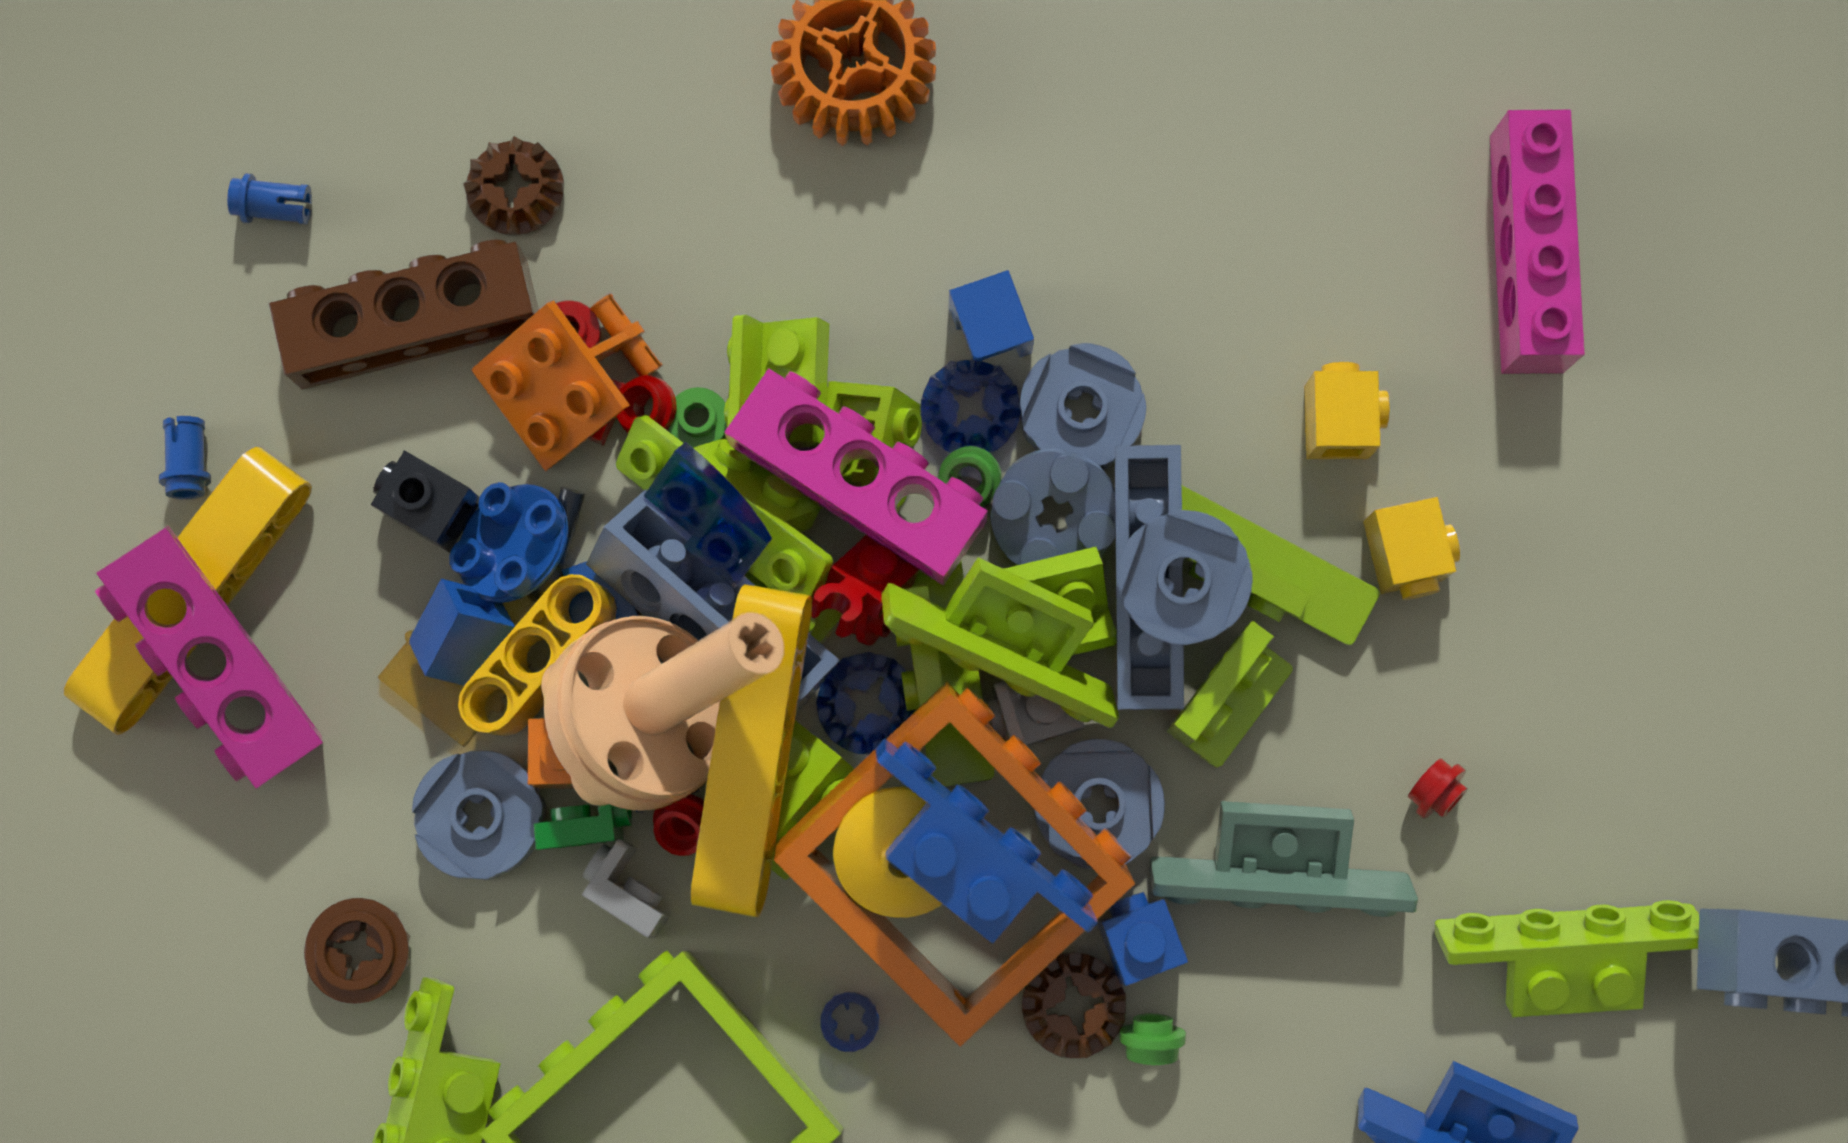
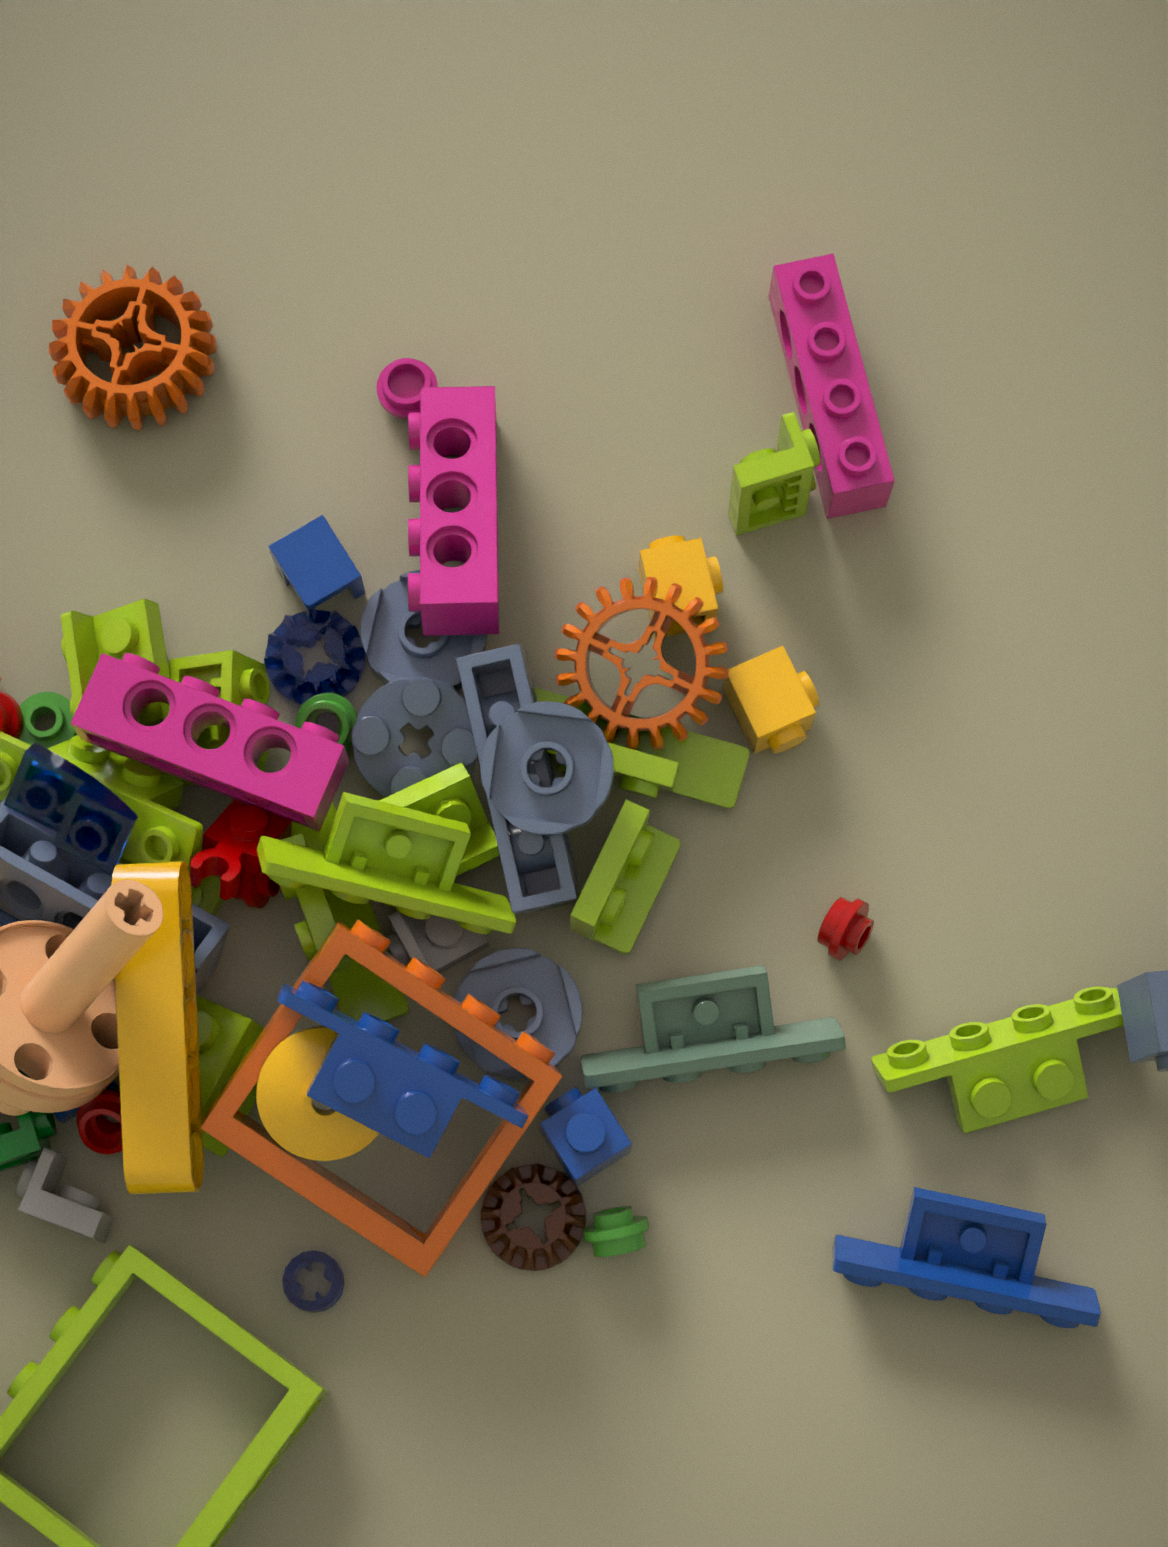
camera: 15 degrees left, 5 degrees down
(838, 710) = (242, 977): clear blue gear -> none
(1114, 157) = (400, 386): none -> dark pink plate
(1137, 383) = (465, 596): none -> dark pink brick
(1339, 520) = (591, 640): none -> orange gear
(1464, 328) = (773, 483): none -> lime bracket

